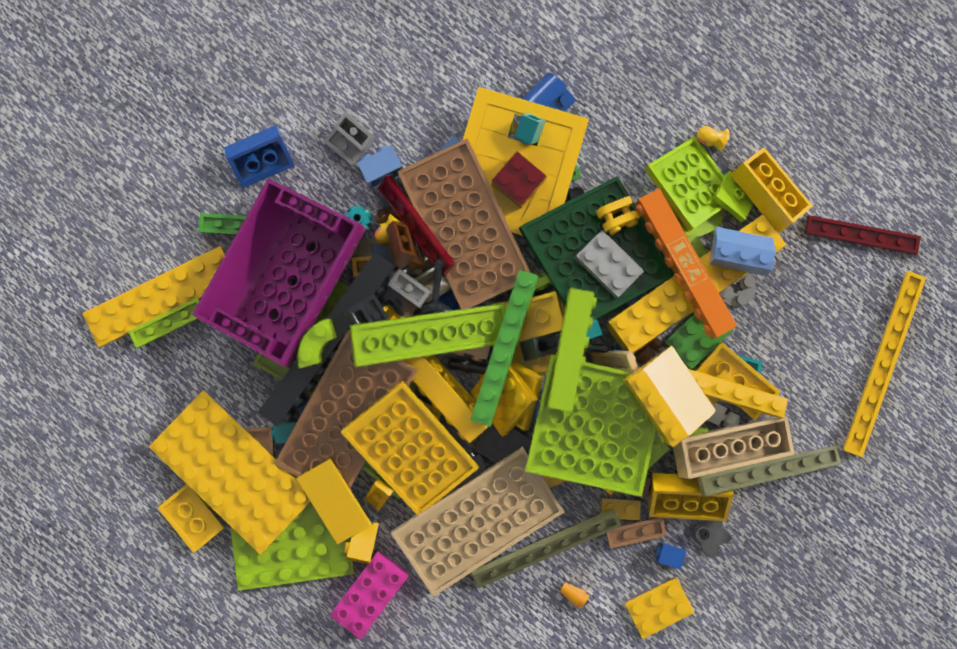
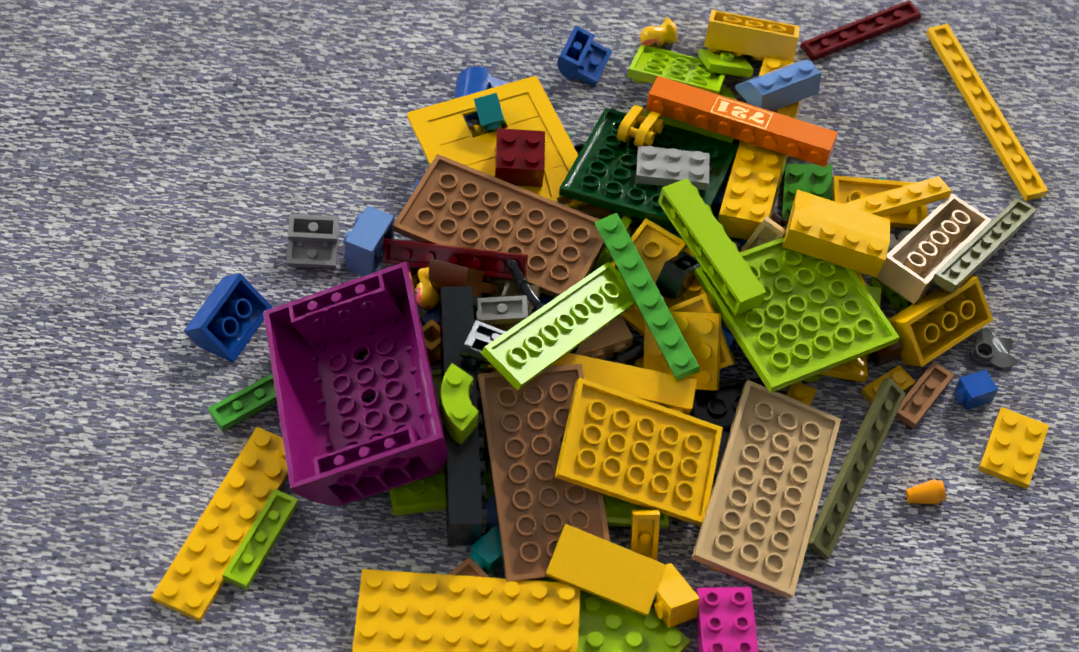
camera: 45 degrees left, 30 degrees down
(643, 120) = (583, 57): none -> blue brick

